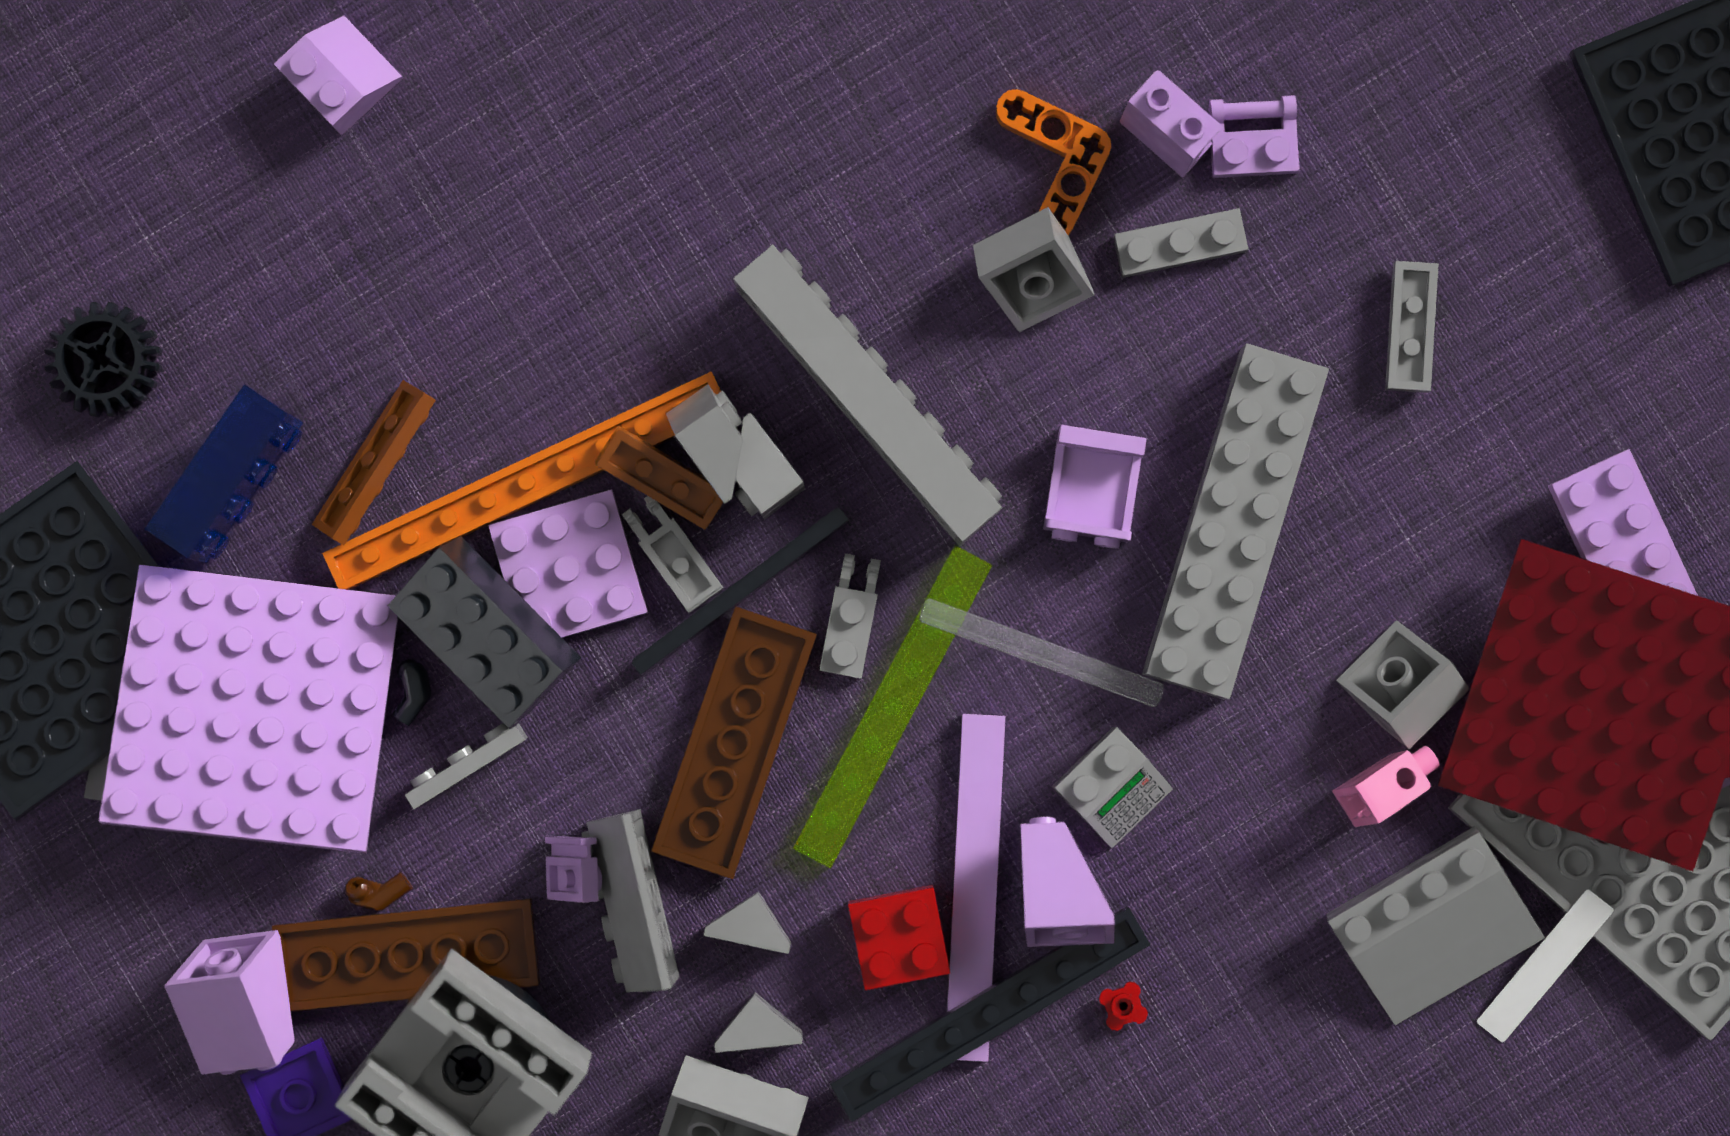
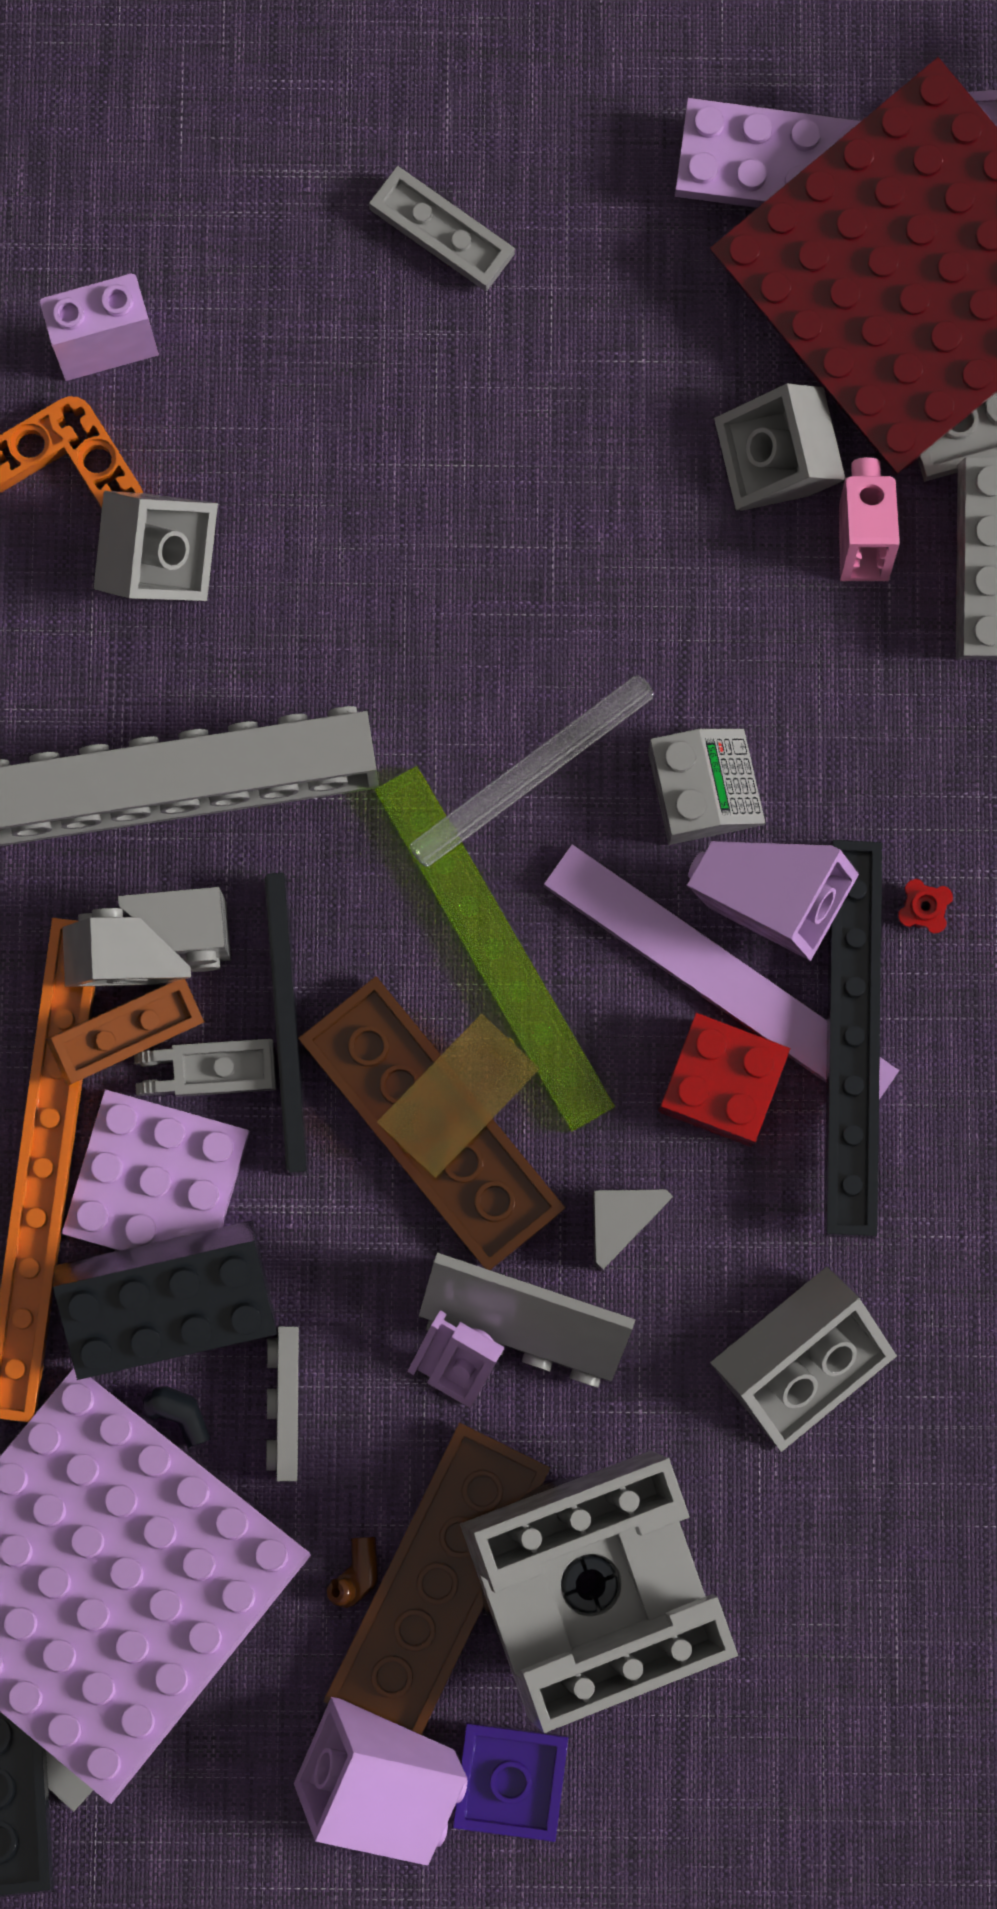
camera: 60 degrees left, 5 degrees down
(758, 1027) = (725, 1275): light grey slope -> none
(764, 750) = (458, 1095): none -> clear yellow piece
(850, 622) = (385, 938): light grey hinge -> none
(1093, 486) = (401, 621): lavender panel -> none
(1180, 242) = (220, 394): light grey plate -> none
(1235, 521) = (523, 508): light grey brick -> none
(1259, 150) = (178, 269): lavender plate -> none

